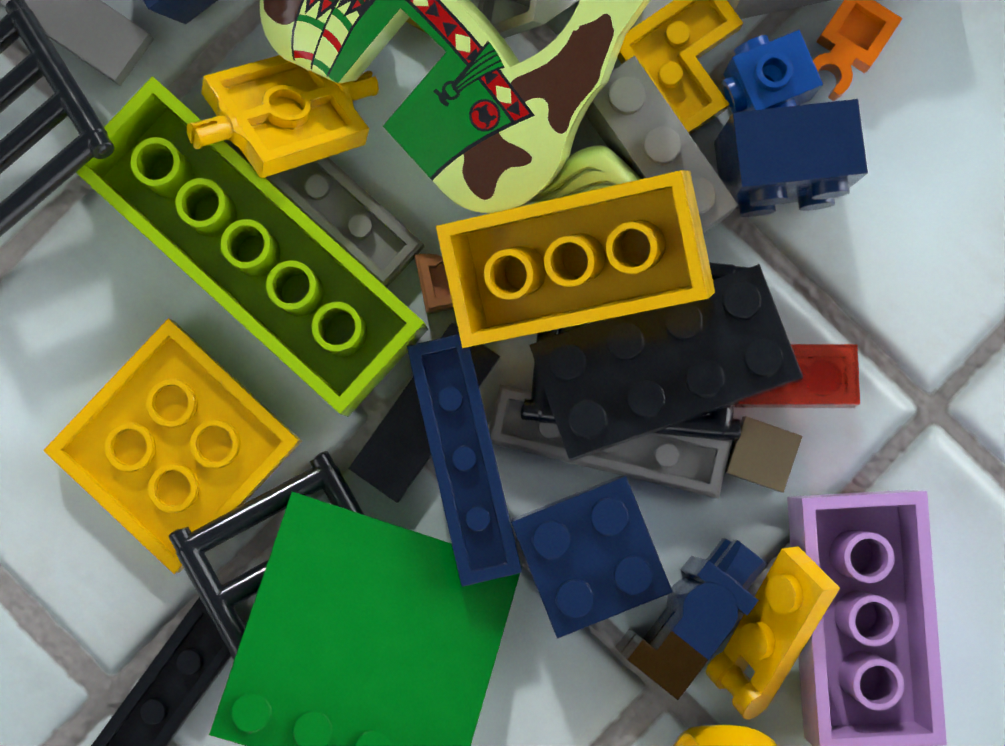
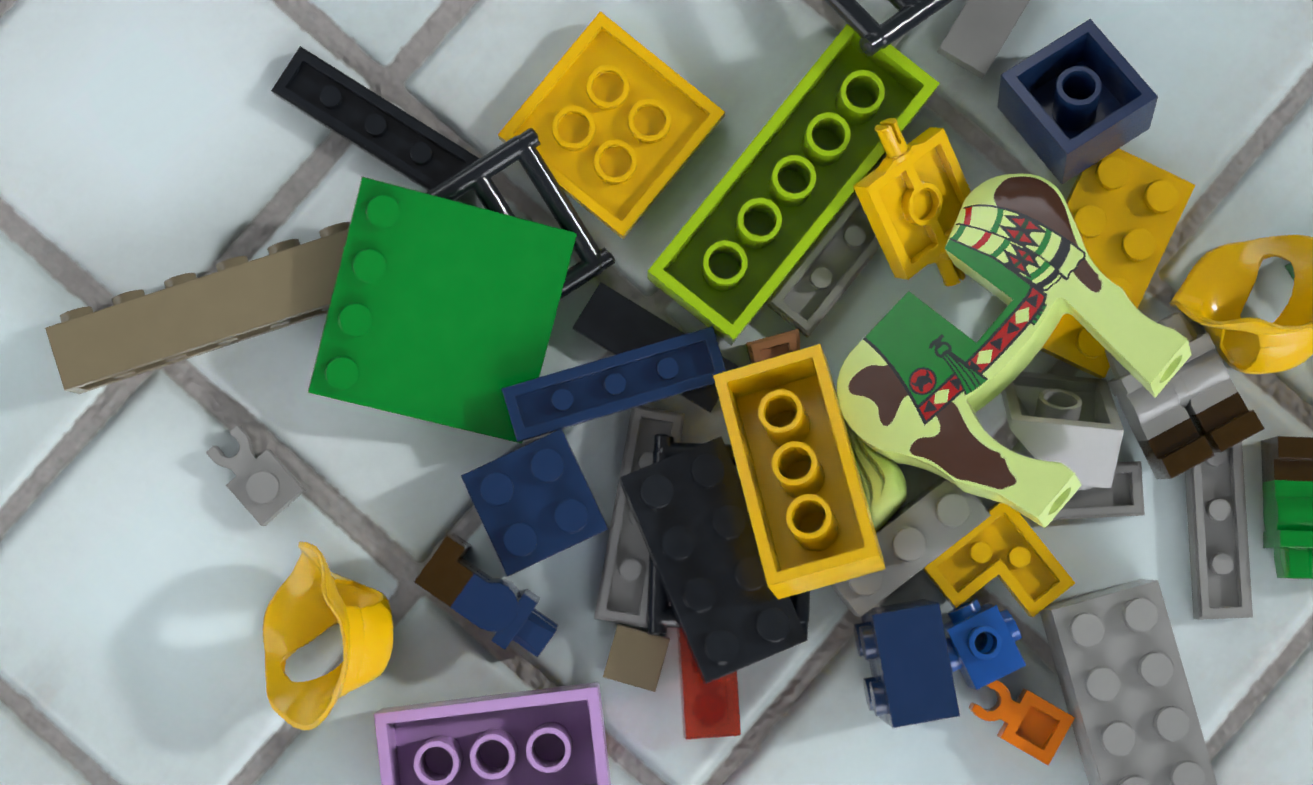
camera: 80 degrees right, 0 degrees up
(773, 632) = (476, 668): yellow plate -> none

